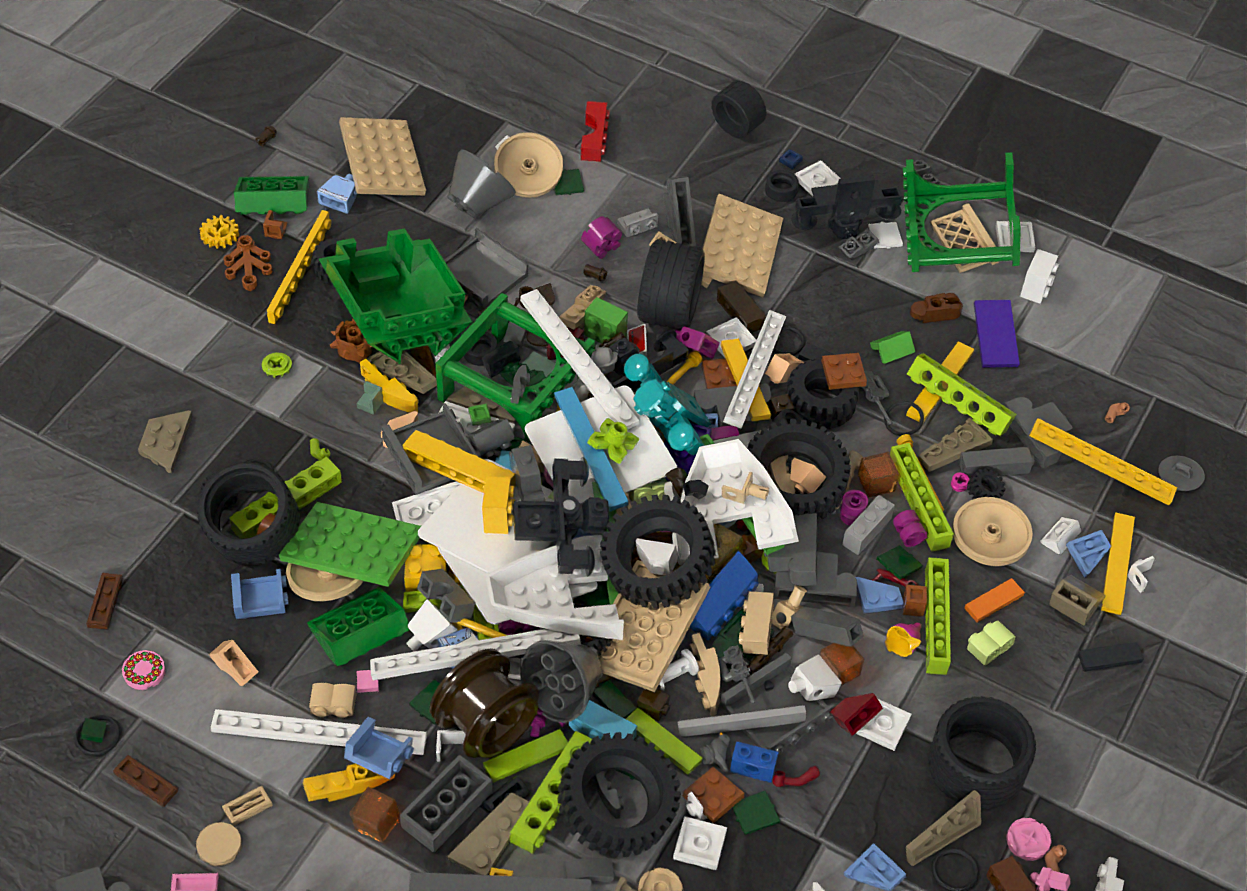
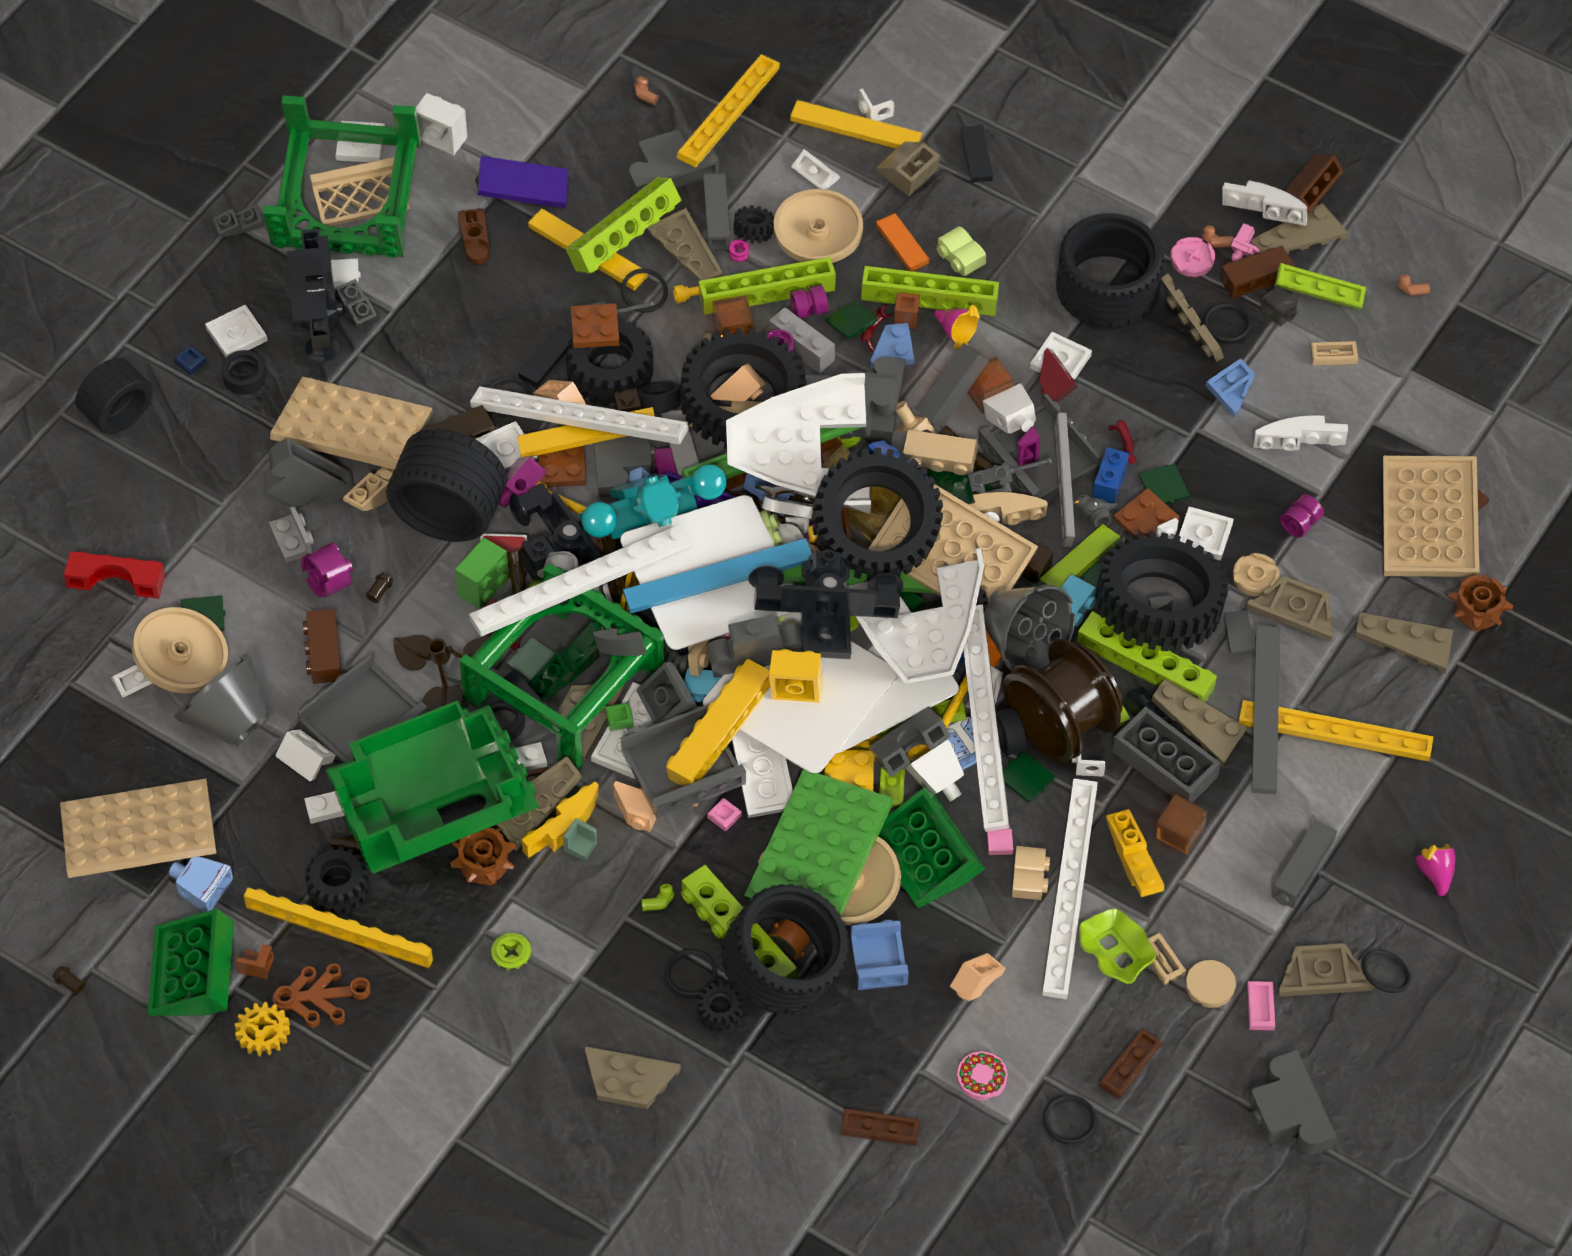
camera: 85 degrees left, 5 degrees up
(93, 730) = (1068, 1119): dark green tile -> none
(249, 758) = (1130, 938): none -> lime piece
(377, 750) = (1107, 815): medium blue panel -> none
(396, 490) = (724, 814): none -> bright pink tile
(450, 240) = (304, 754): none -> white panel
(540, 243) = (322, 646): none -> reddish brown brick
(575, 315) = (441, 601): tan slope -> none
(615, 439) = (714, 547): lime plant -> none
(657, 556) = (877, 521): white slope -> none
(695, 488) = (787, 474): black piece -> none
(748, 489) = (799, 418): tan bracket -> none
(767, 688) = (1028, 448): none -> magenta slope
(894, 346) = (528, 286): bright green panel -> none
(1088, 550) = (841, 148): medium blue wing -> none
(1181, 472) = (734, 49): dark grey shield -> none

